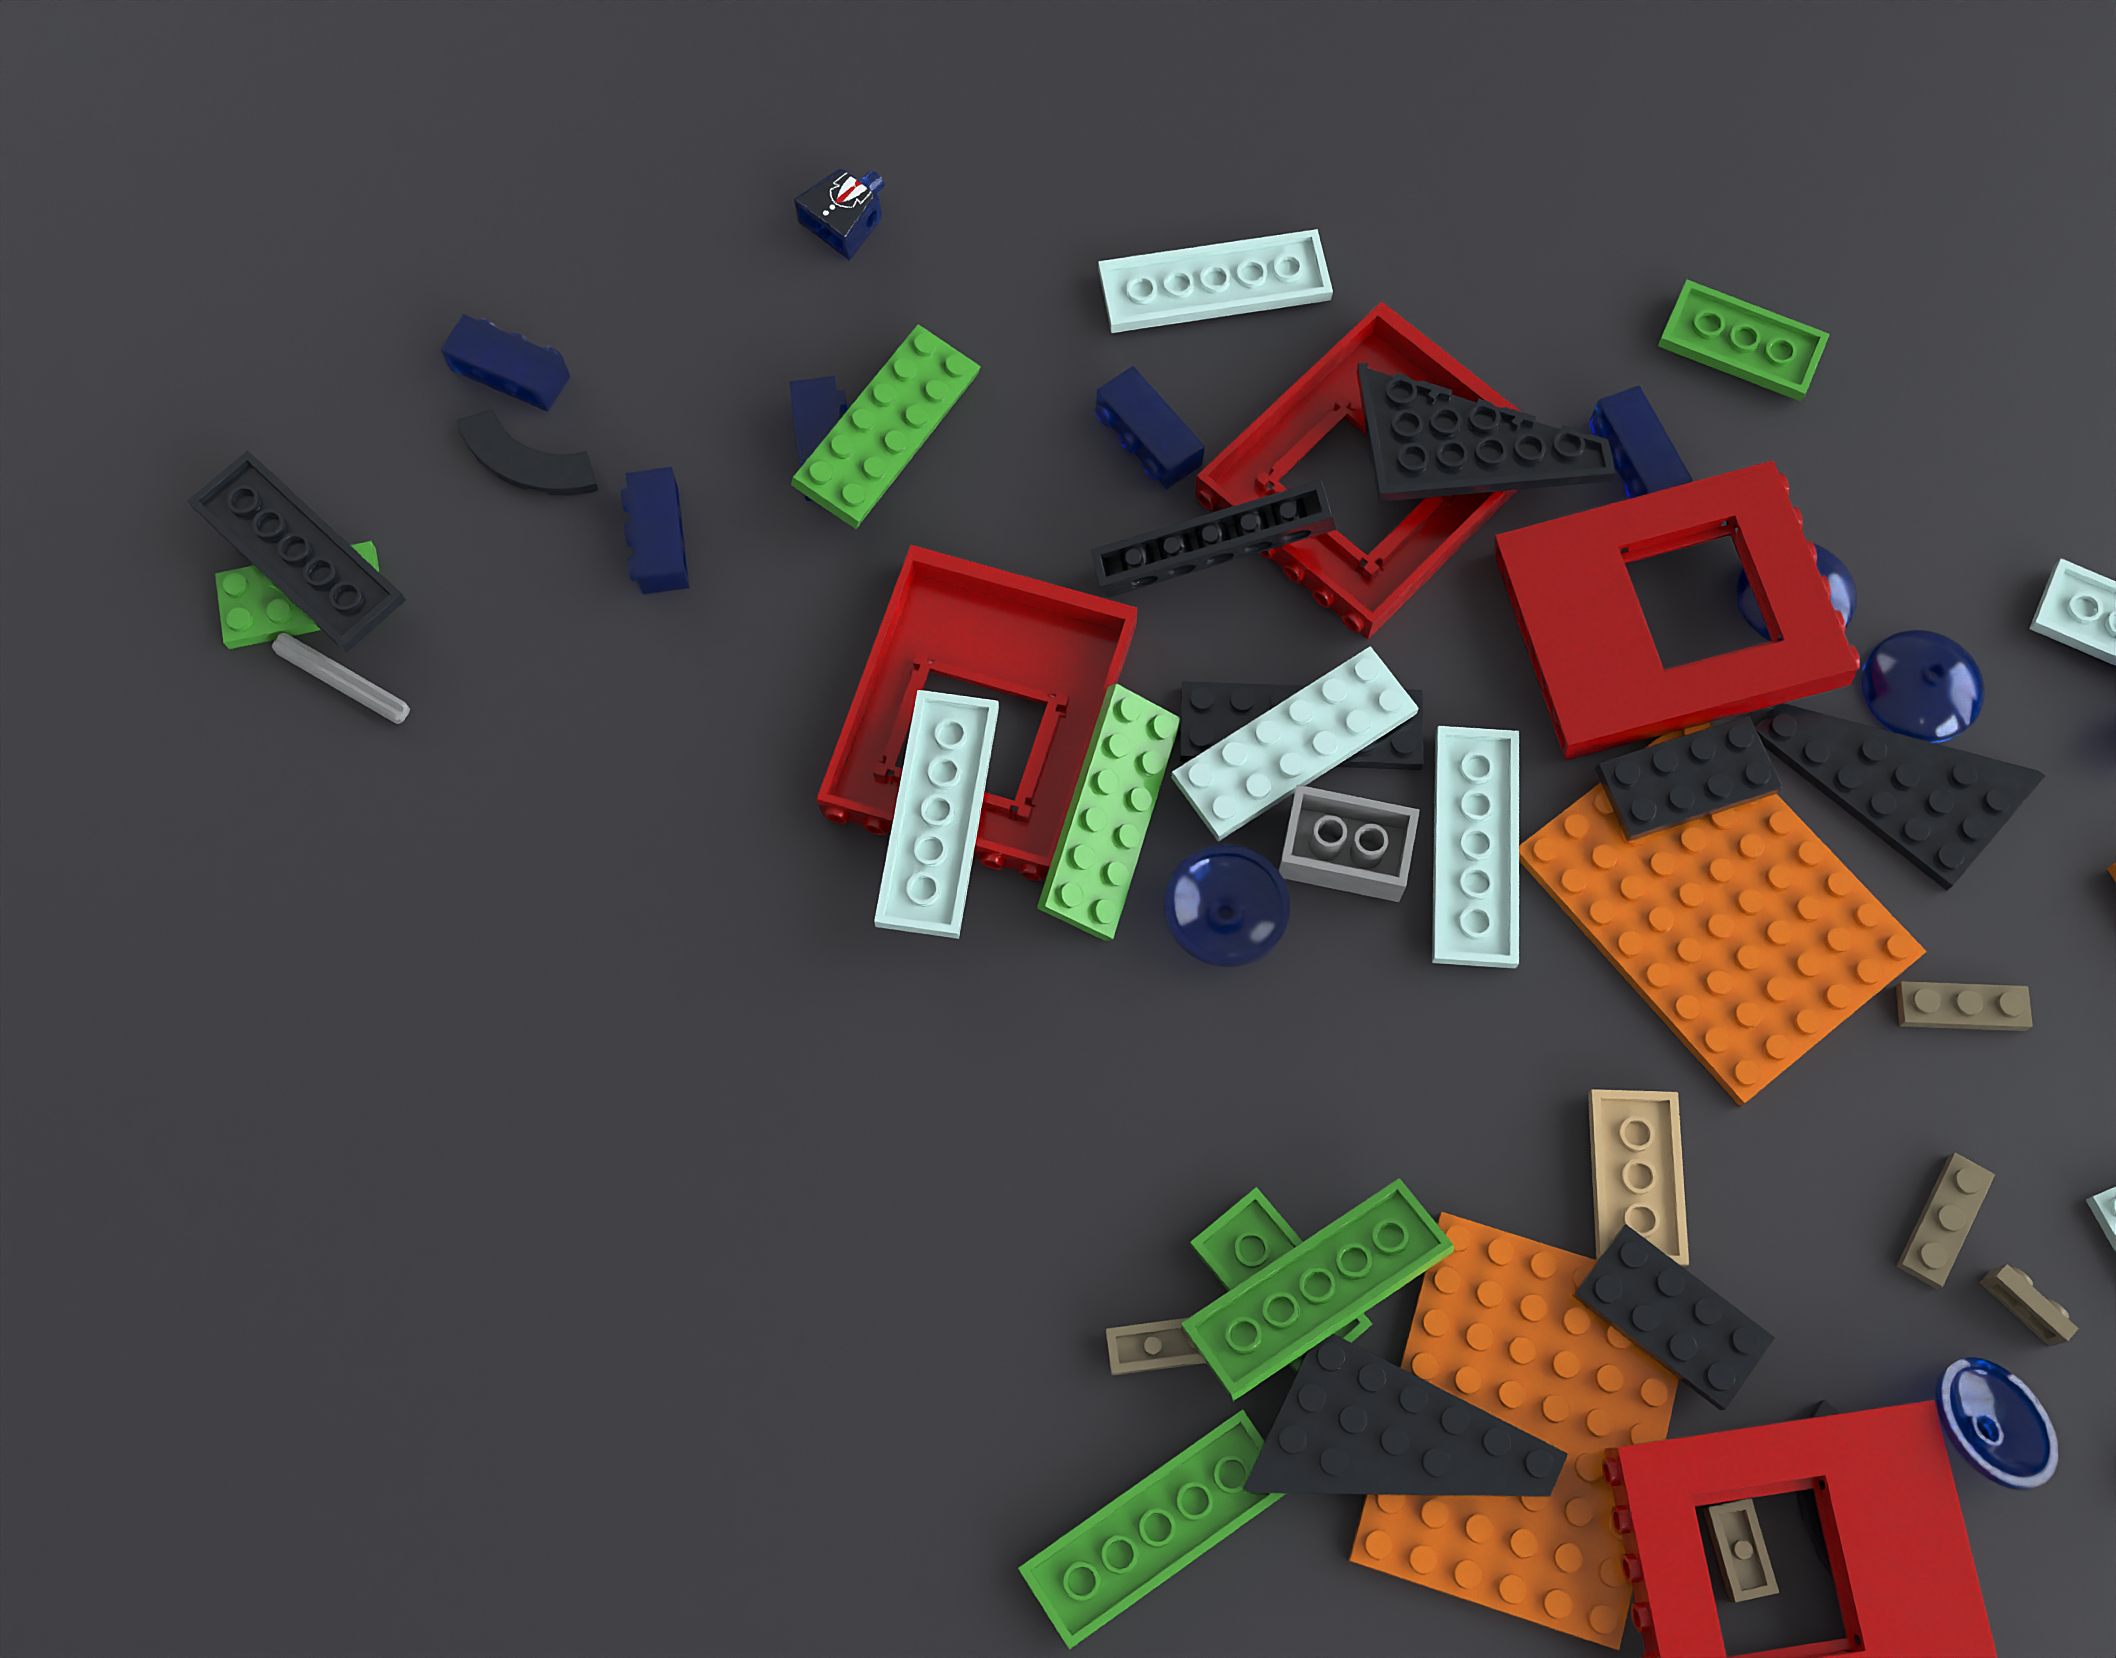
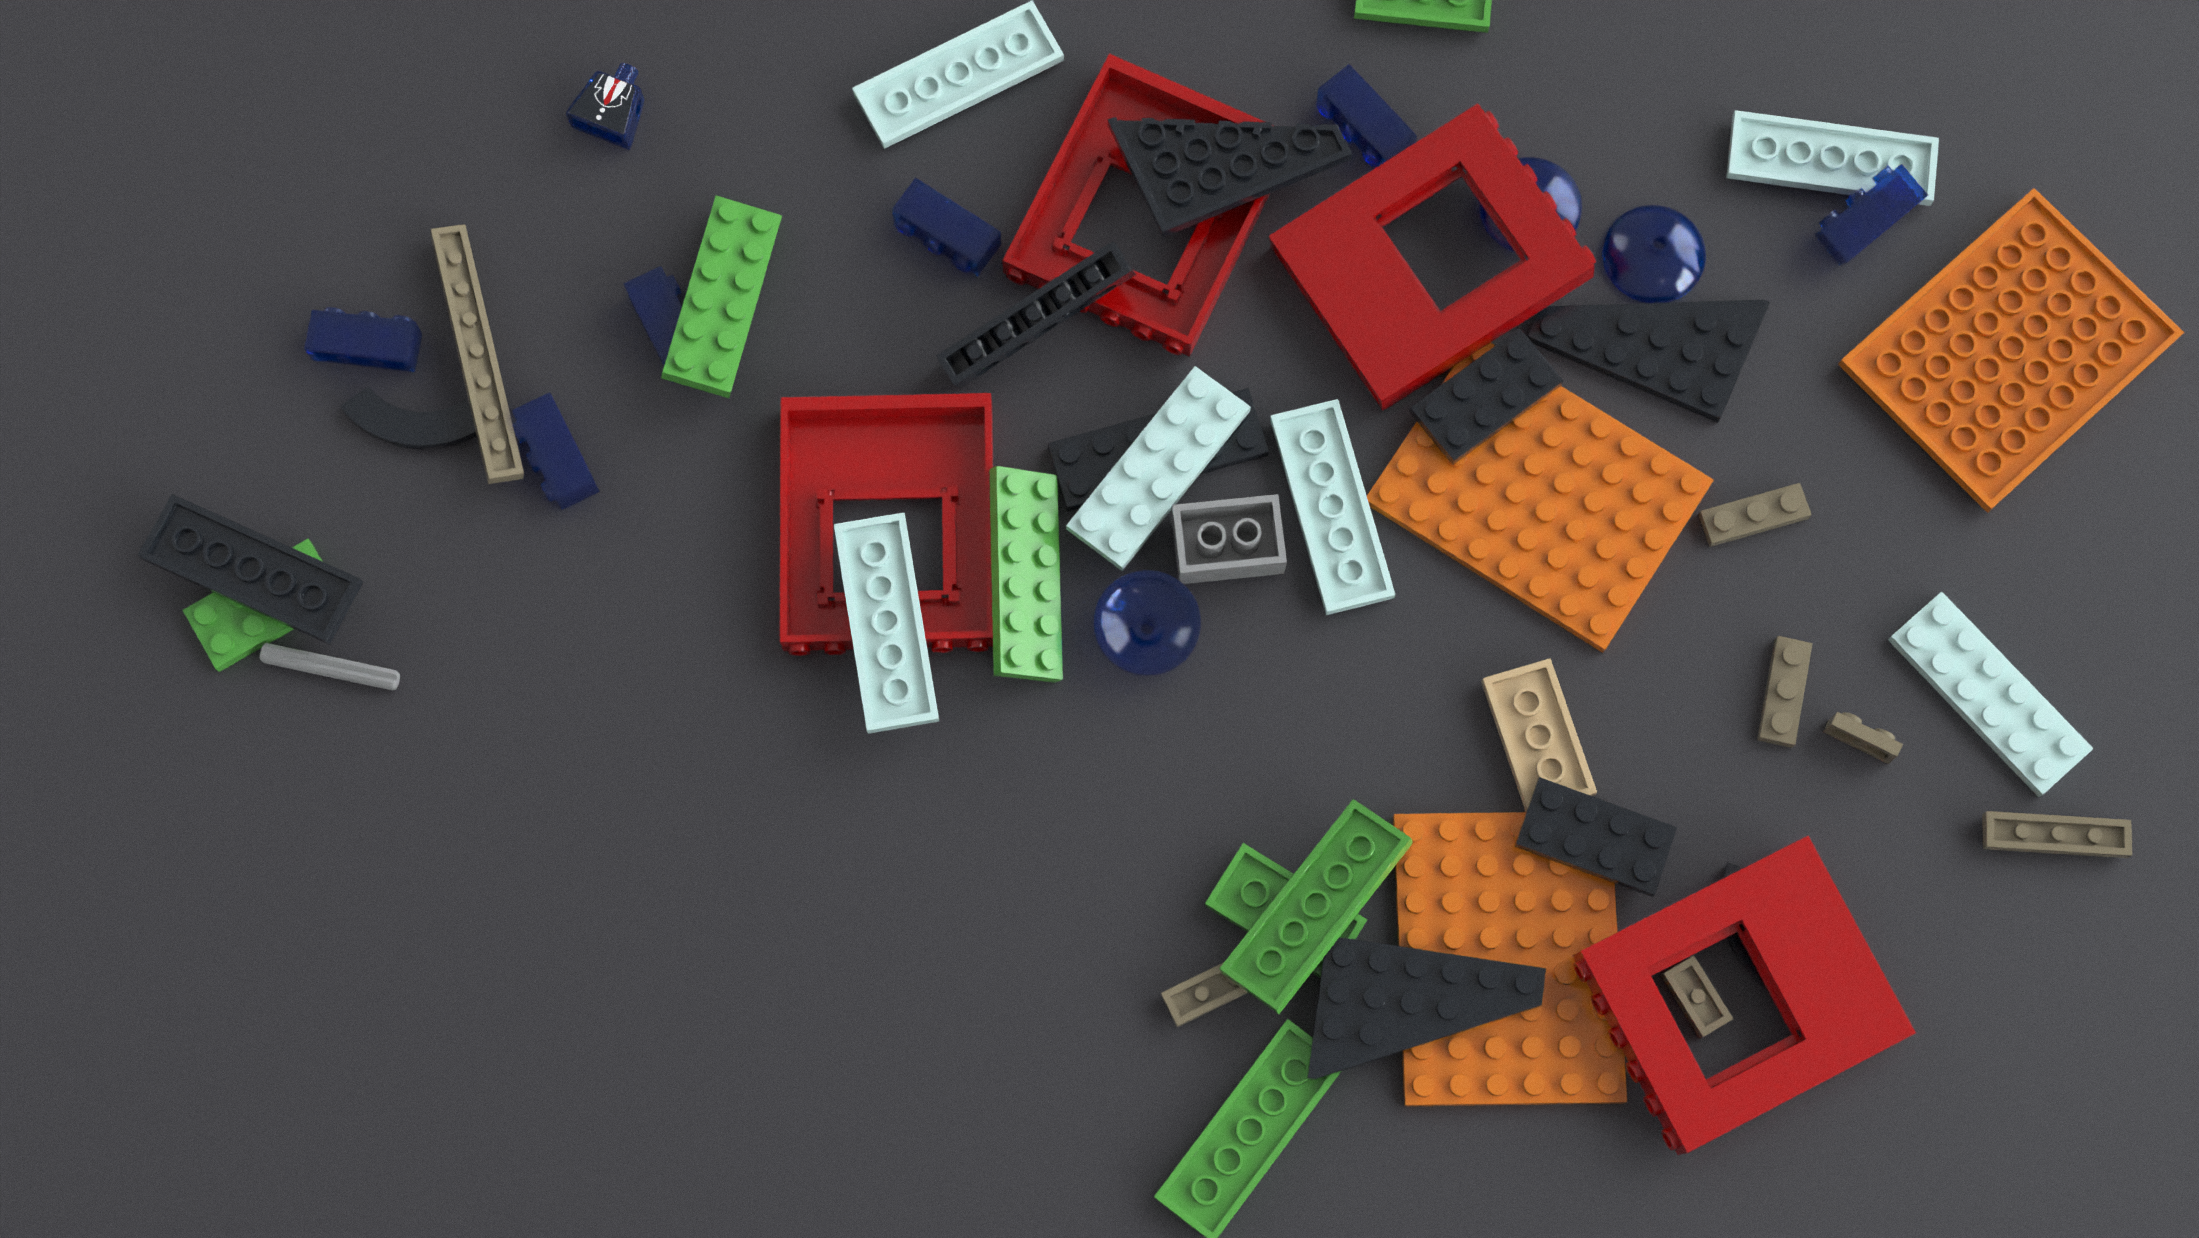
camera: 20 degrees left, 5 degrees up
(613, 411) = (477, 354): none -> dark tan plate
(1996, 1424) = (1860, 837): clear blue dish -> none

